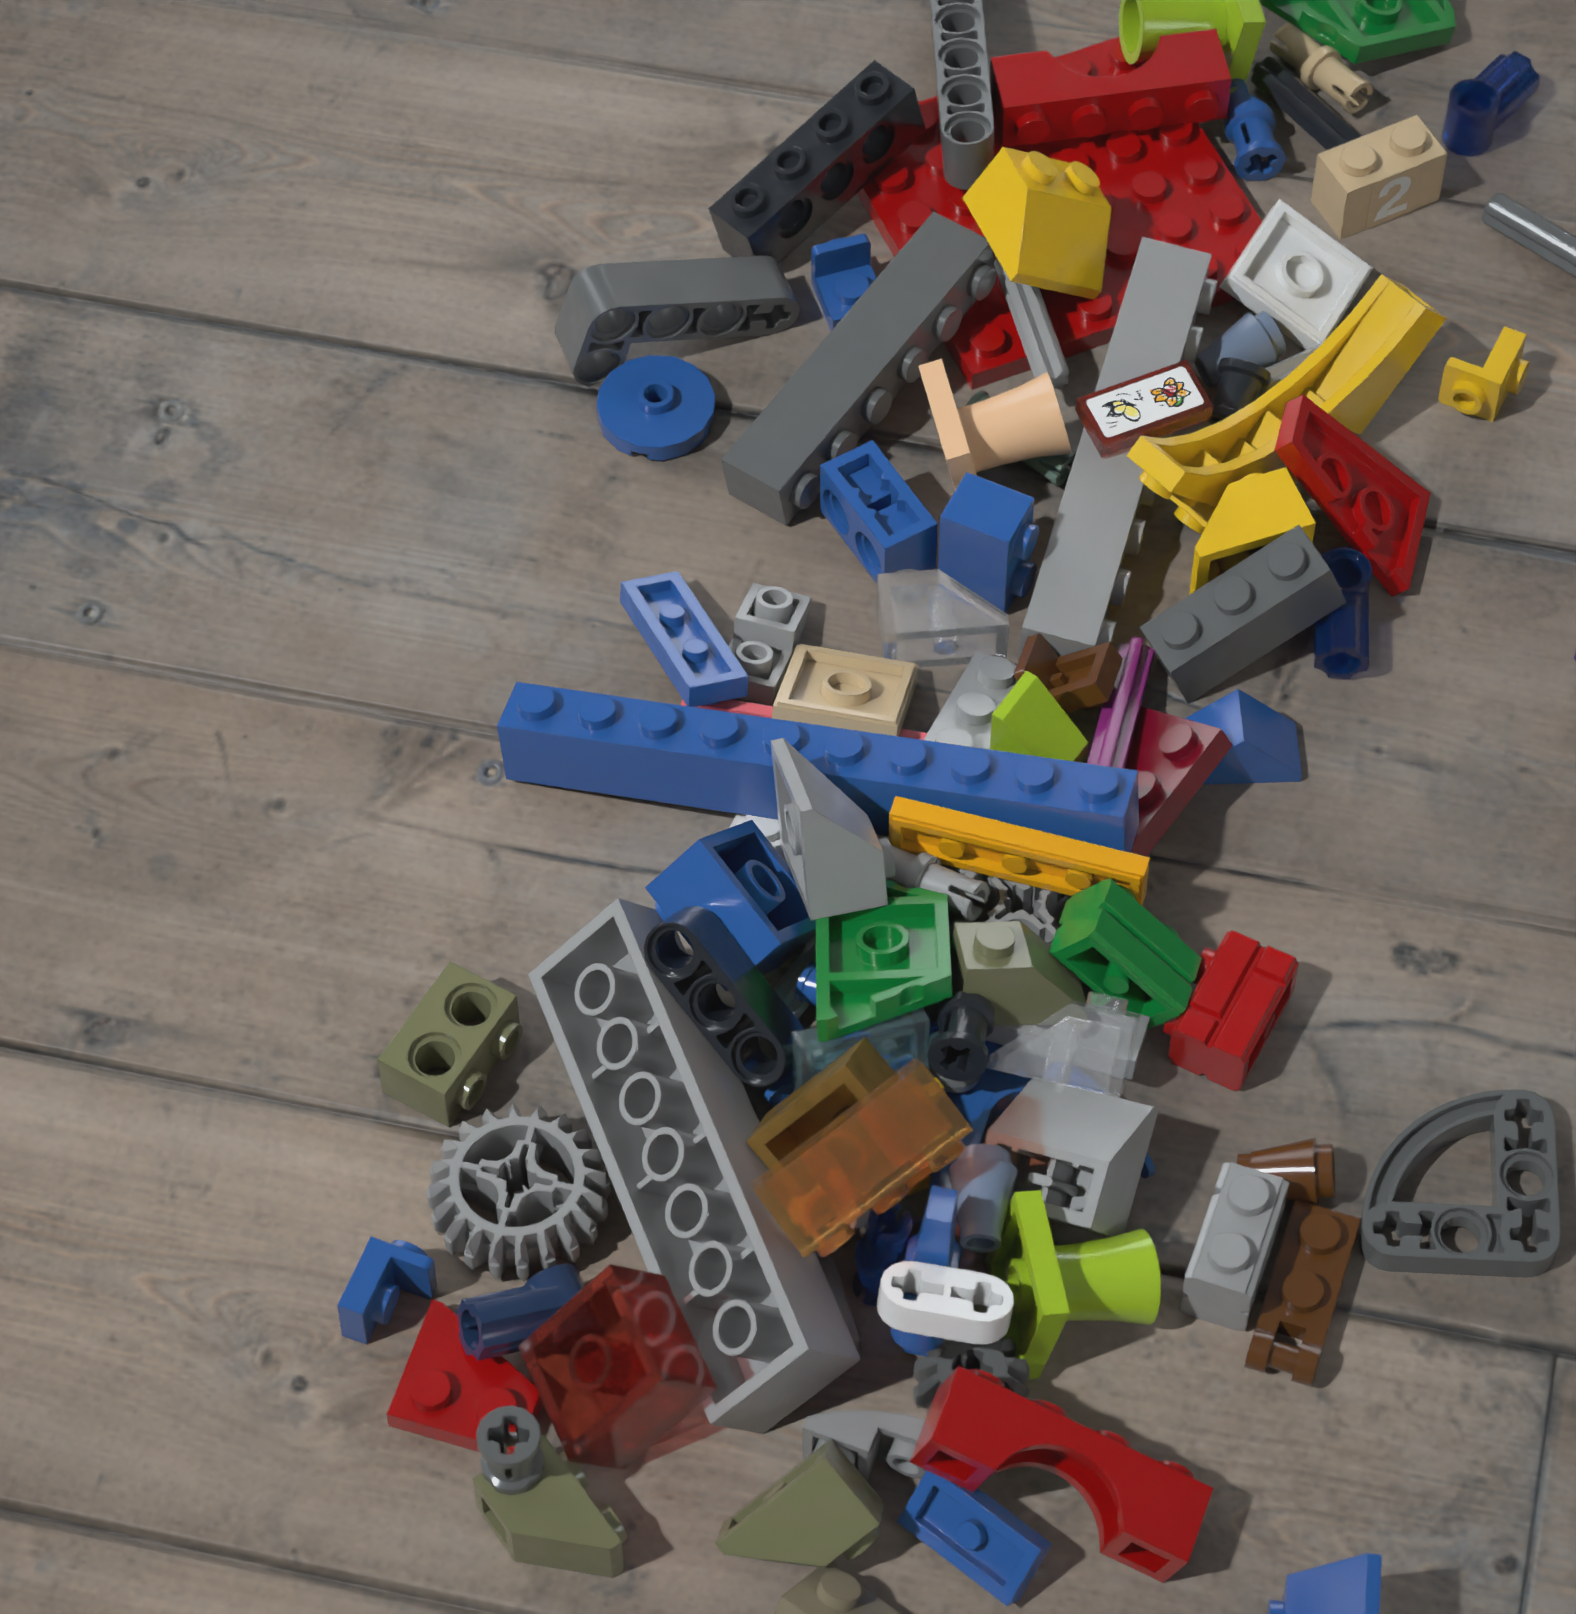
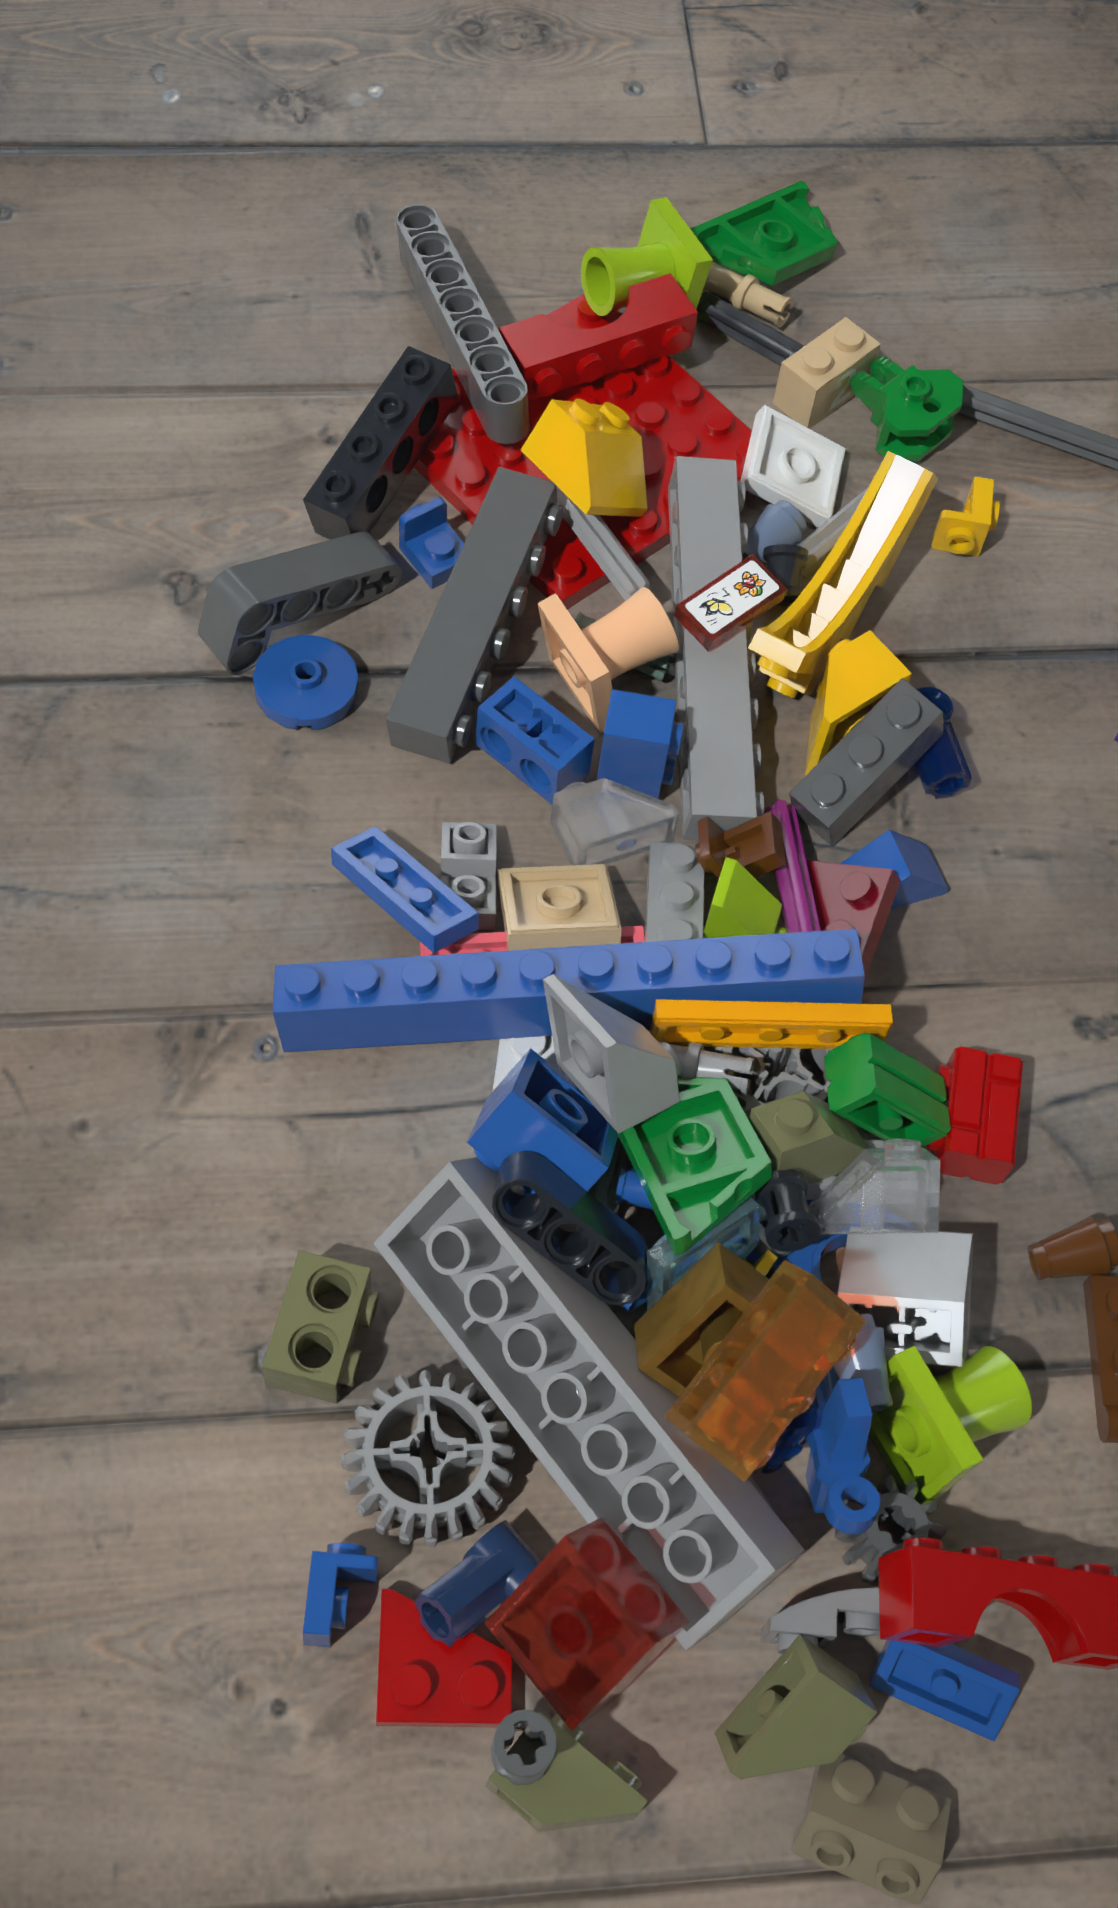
camera: 25 degrees left, 5 degrees up
(945, 1302) = (878, 1491): white beam -> none
(1234, 1246) = (1063, 1335): light grey brick -> none
(1251, 130) = (712, 354): blue piece -> none
(1357, 489) = (914, 633): red wing -> none
(1464, 232) = (909, 406): none -> green hinge
(1486, 102) = (884, 297): clear blue piece -> none

